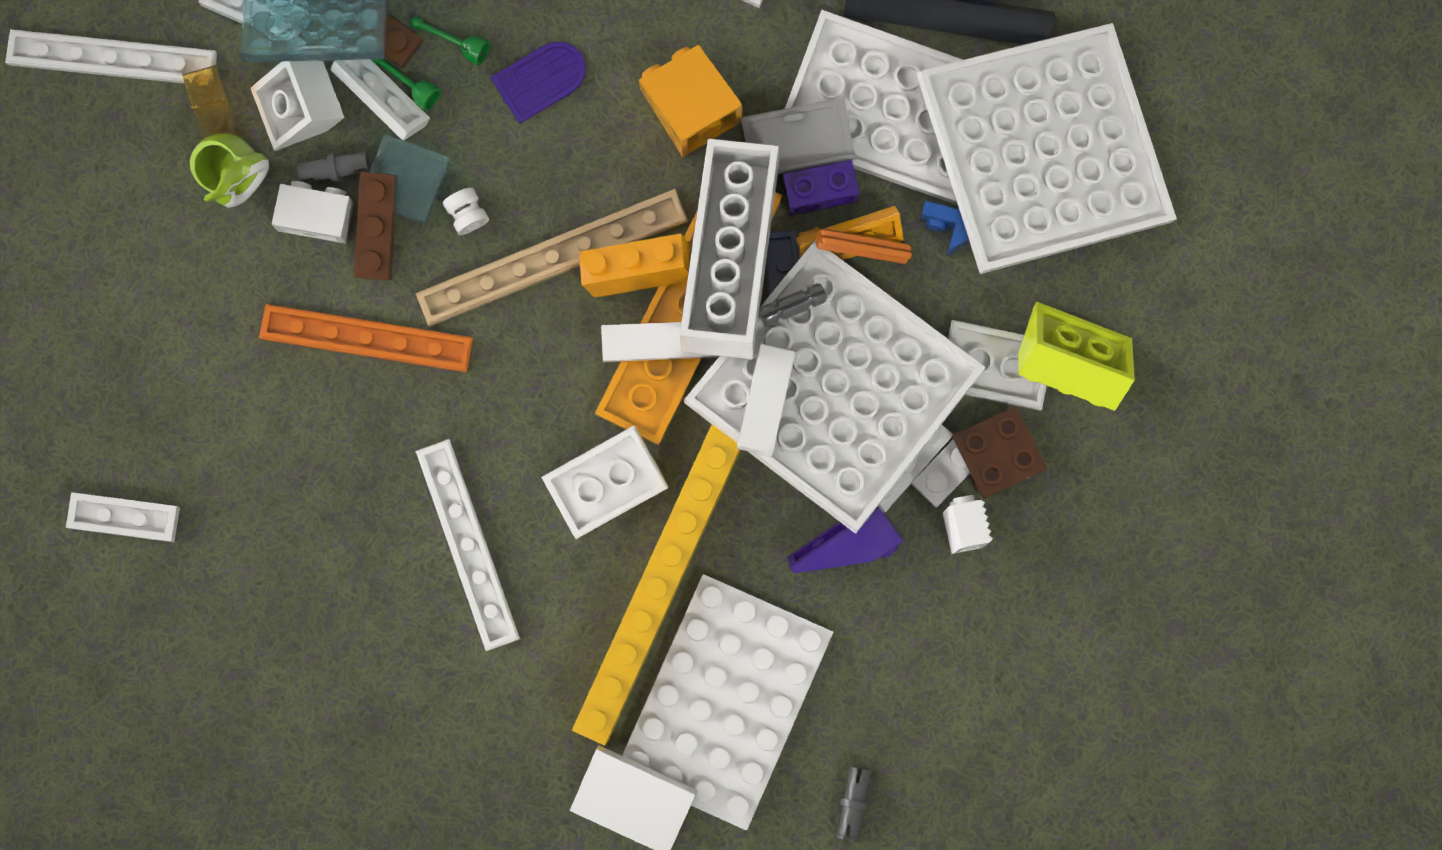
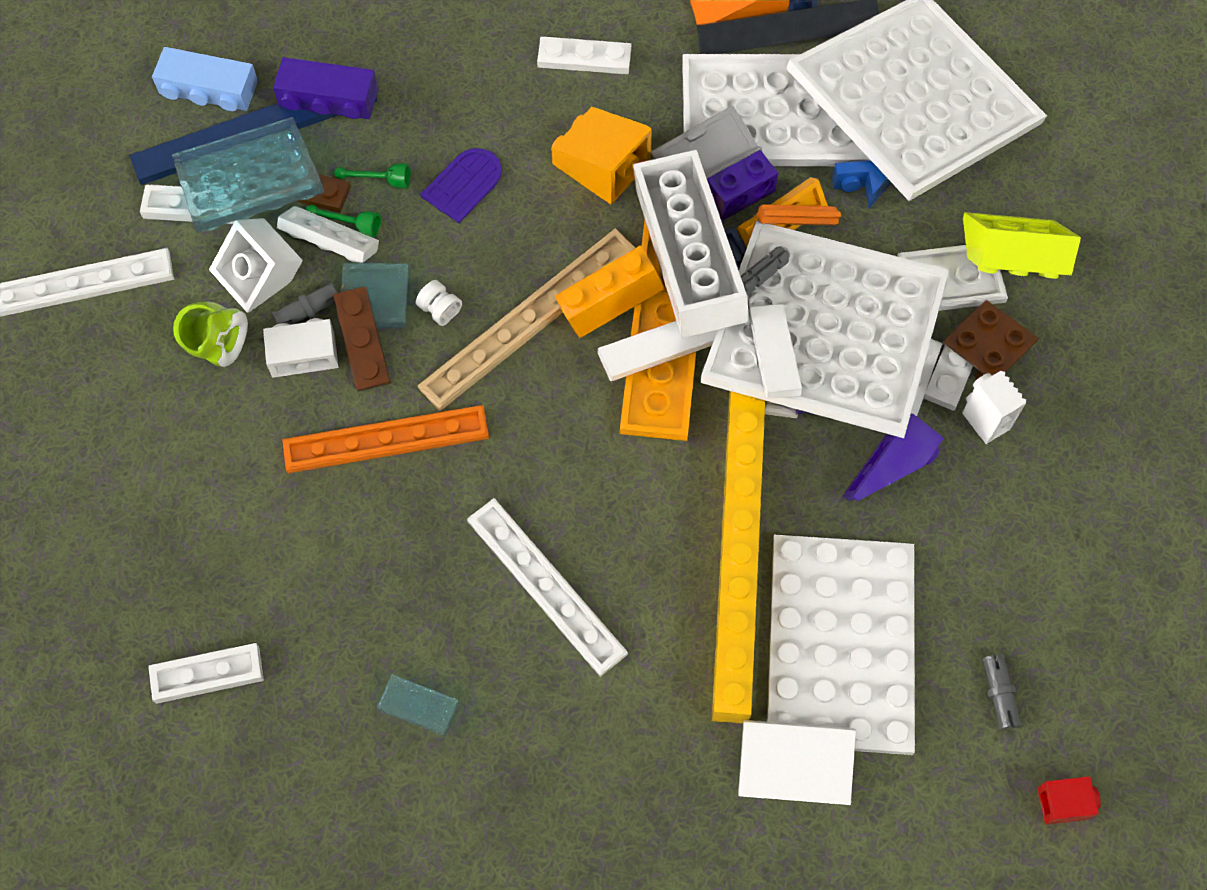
camera: 20 degrees left, 15 degrees down
(209, 102) = (172, 285): clear yellow slope -> none
(307, 619) = (418, 705): none -> clear light blue plate
(605, 482) = (652, 485): white tile -> none

